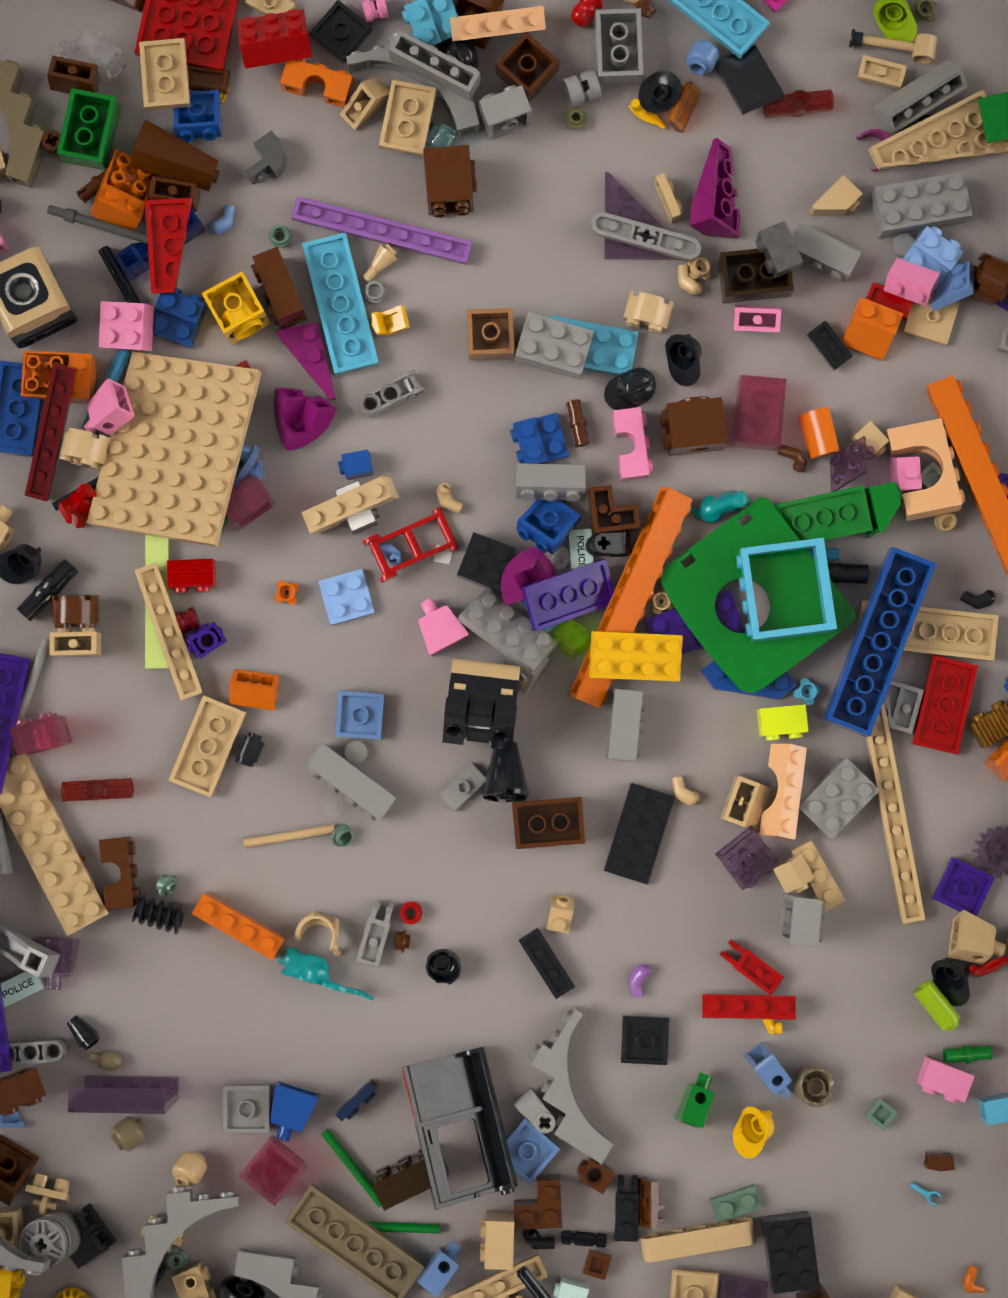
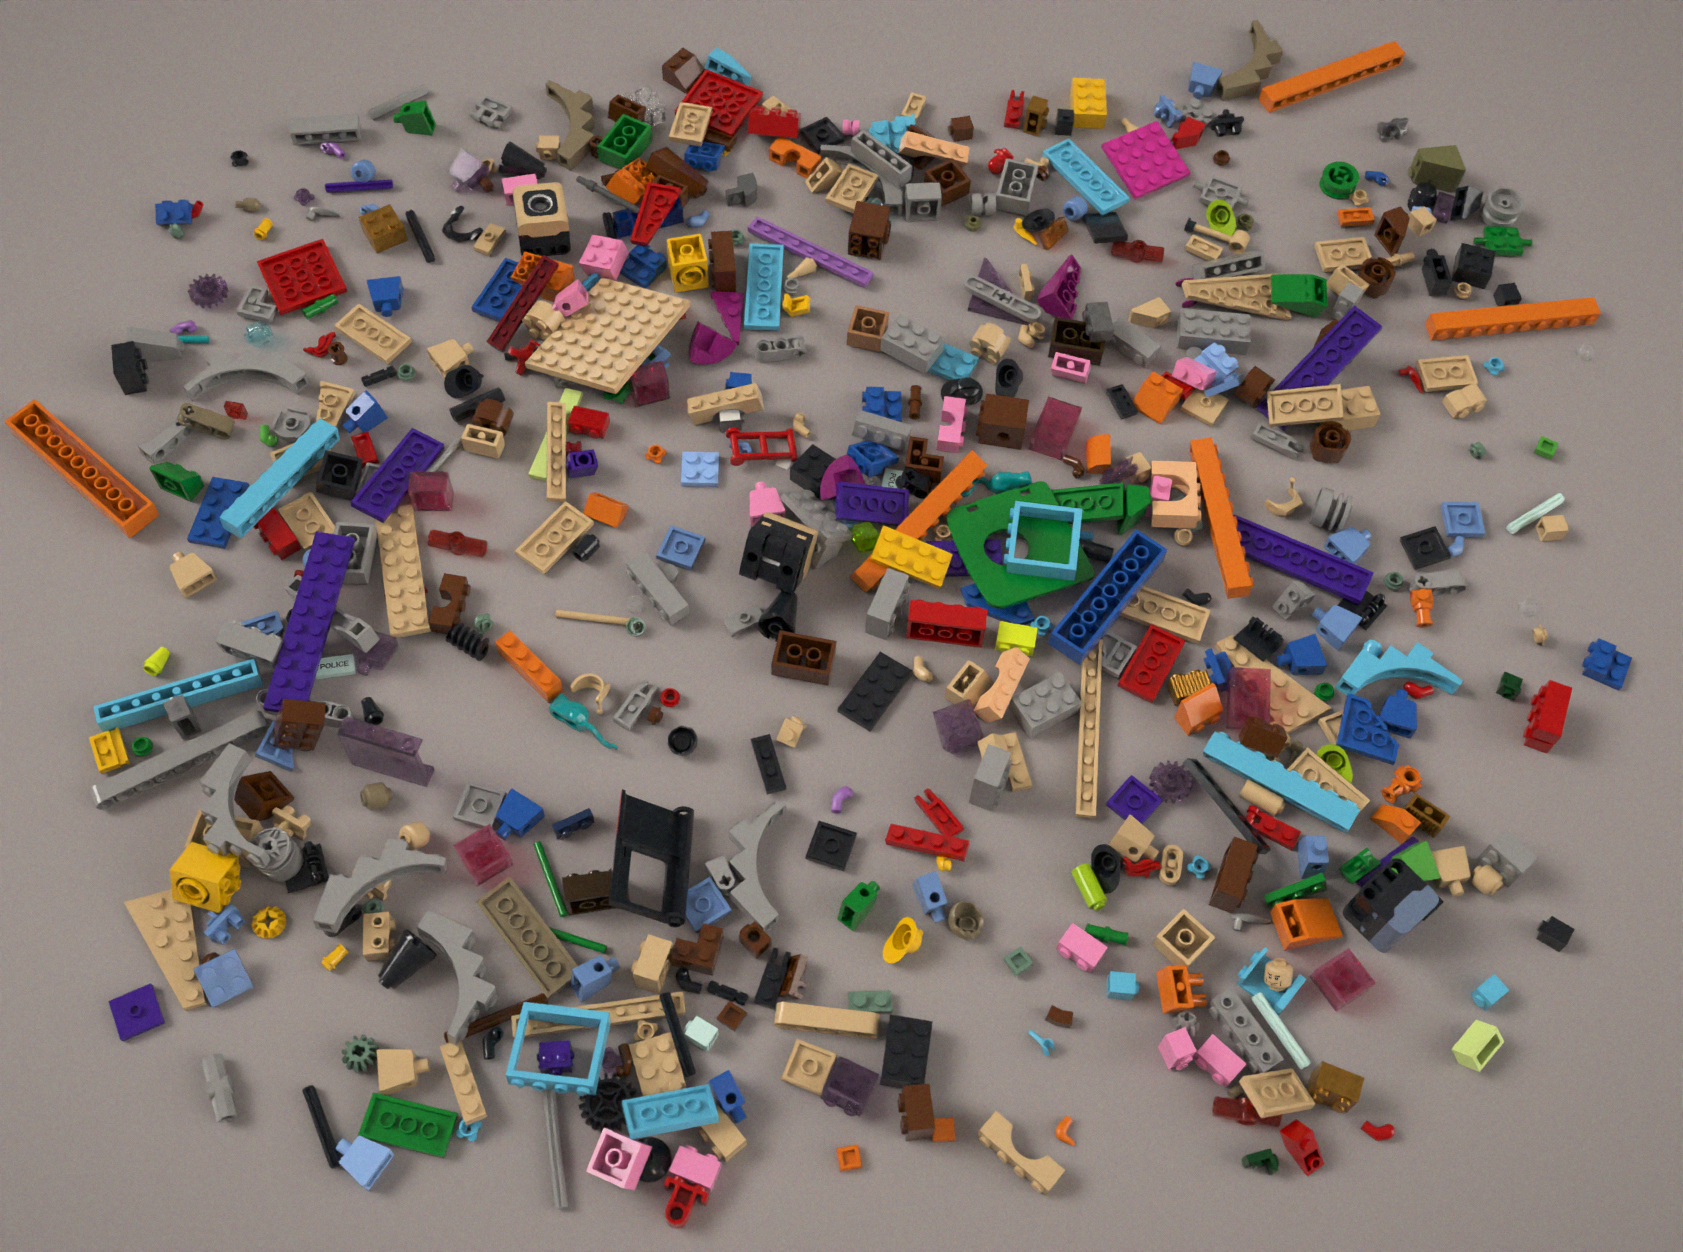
camera: 15 degrees right, 25 degrees down
(700, 730) = (946, 623): none -> red brick

